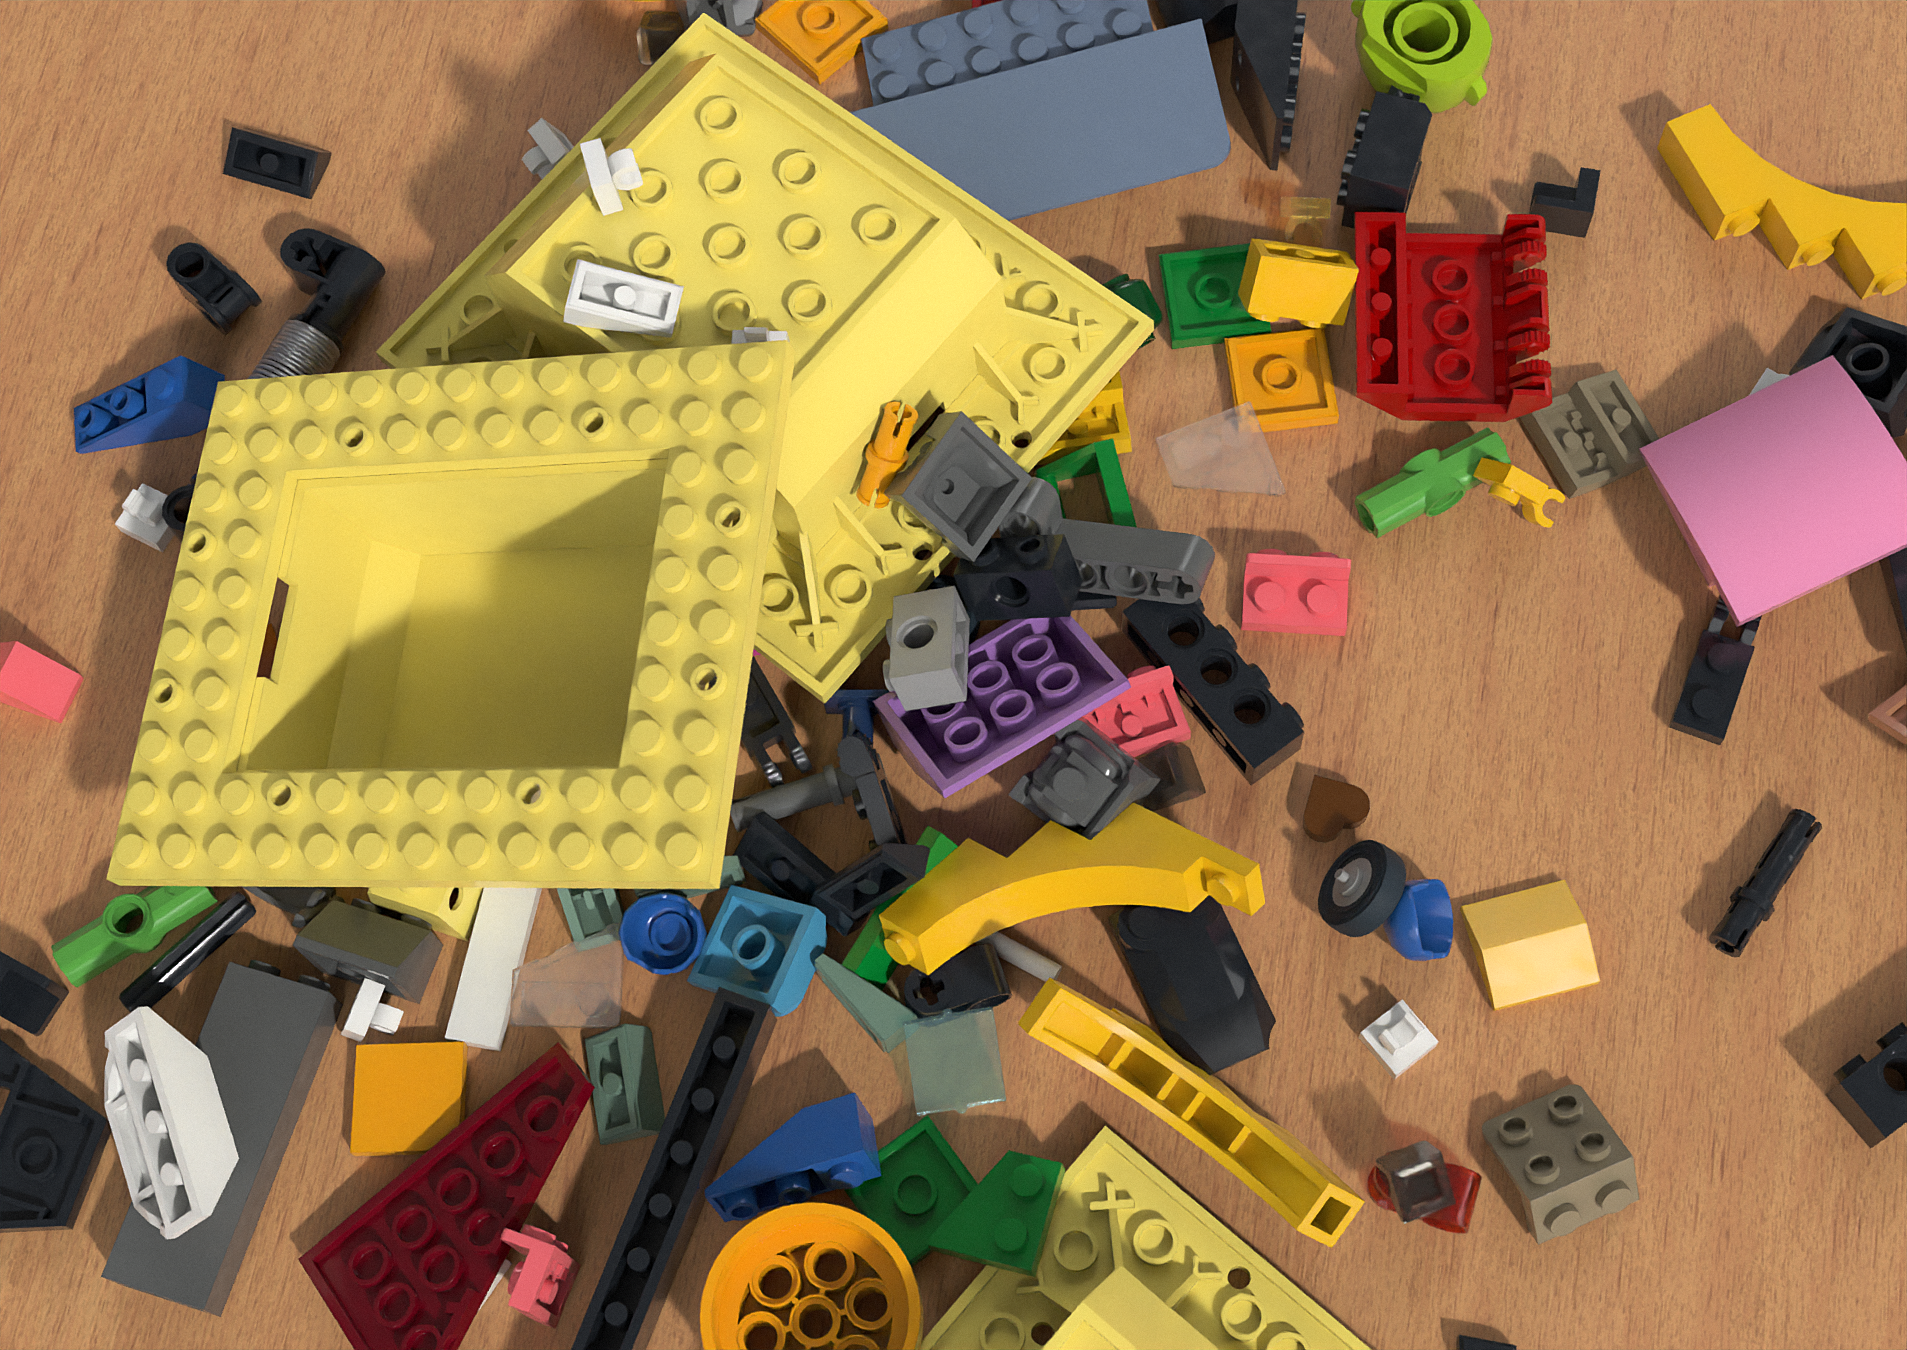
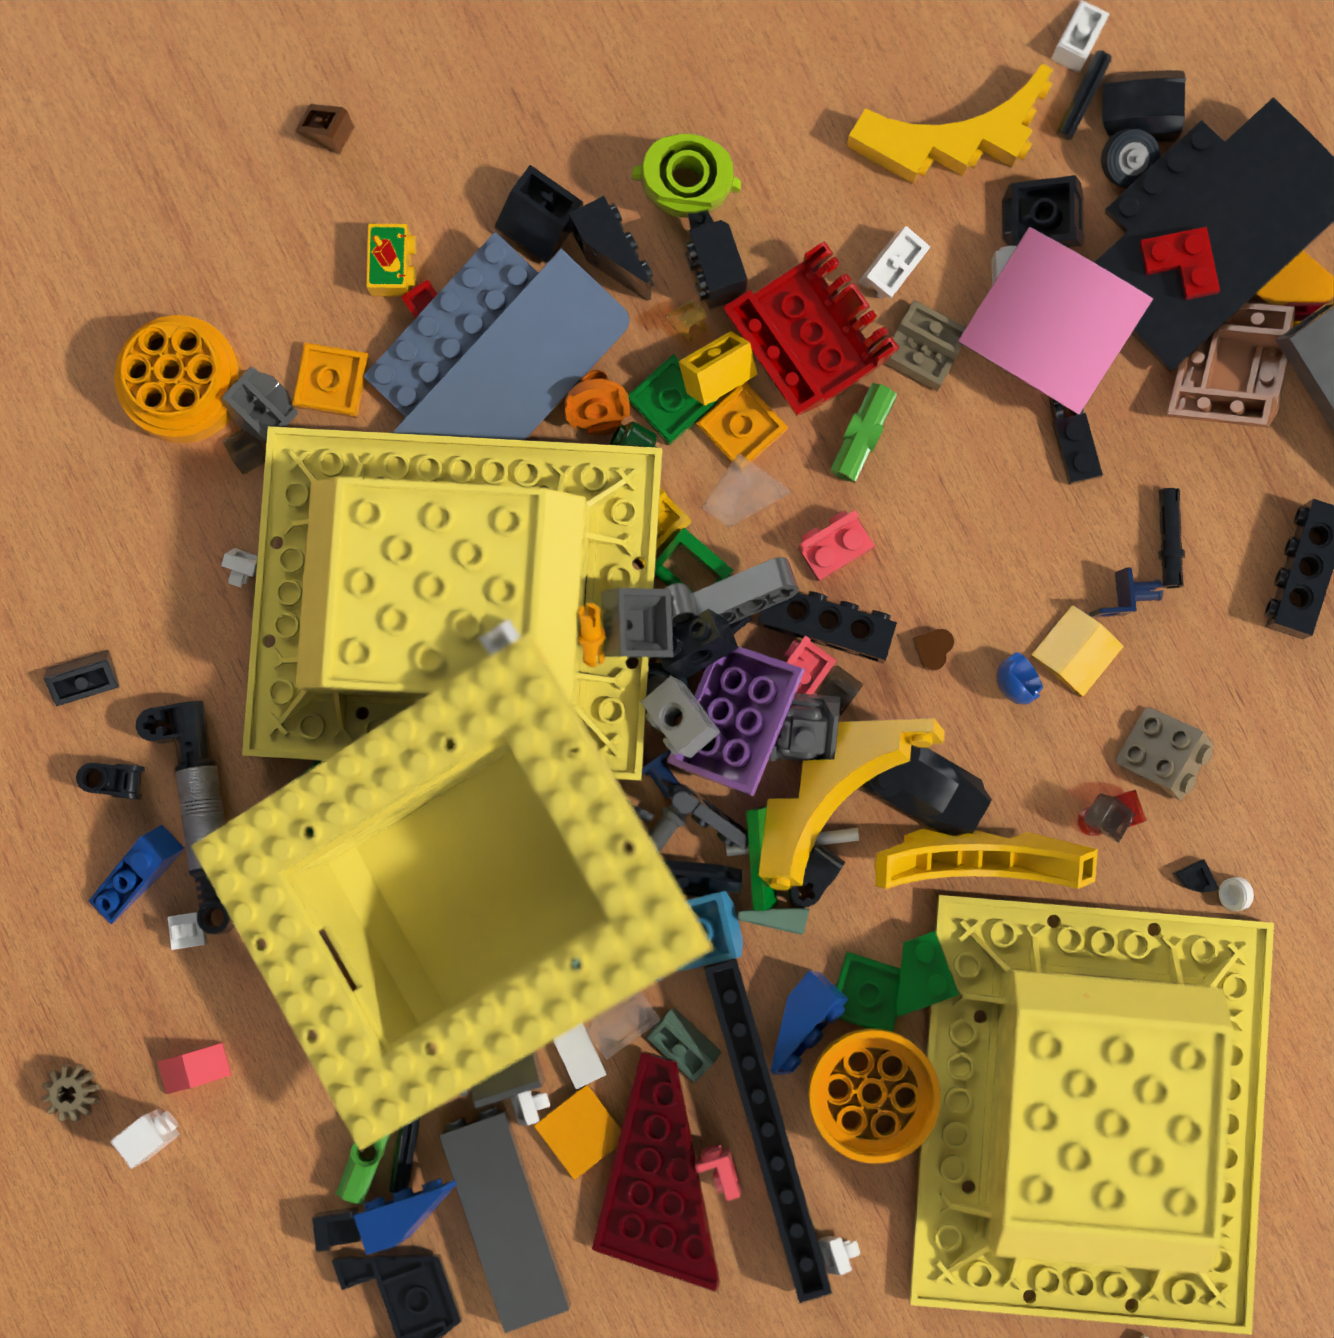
camera: 40 degrees left, 15 degrees up
(74, 1023) = (394, 1221): none -> blue slope
(166, 1122) = (484, 1242): white wedge -> none
(610, 174) = (340, 594): white tile -> none
(621, 301) = (402, 661): white slope -> none
(875, 878) = (744, 858): black slope -> none
(954, 1061) = (842, 916): clear light blue piece -> none
(1112, 233) = (597, 404): none -> orange tile
(1362, 888) = (981, 684): black wheel -> none
(1398, 1039) = (1047, 746): white tile -> none
(1512, 484) = (909, 409): yellow plate -> none
(1567, 208) = (822, 218): black panel -> none
(1620, 305) = (894, 263): none -> white hinge
(1655, 913) = (1129, 593): none -> dark blue bracket

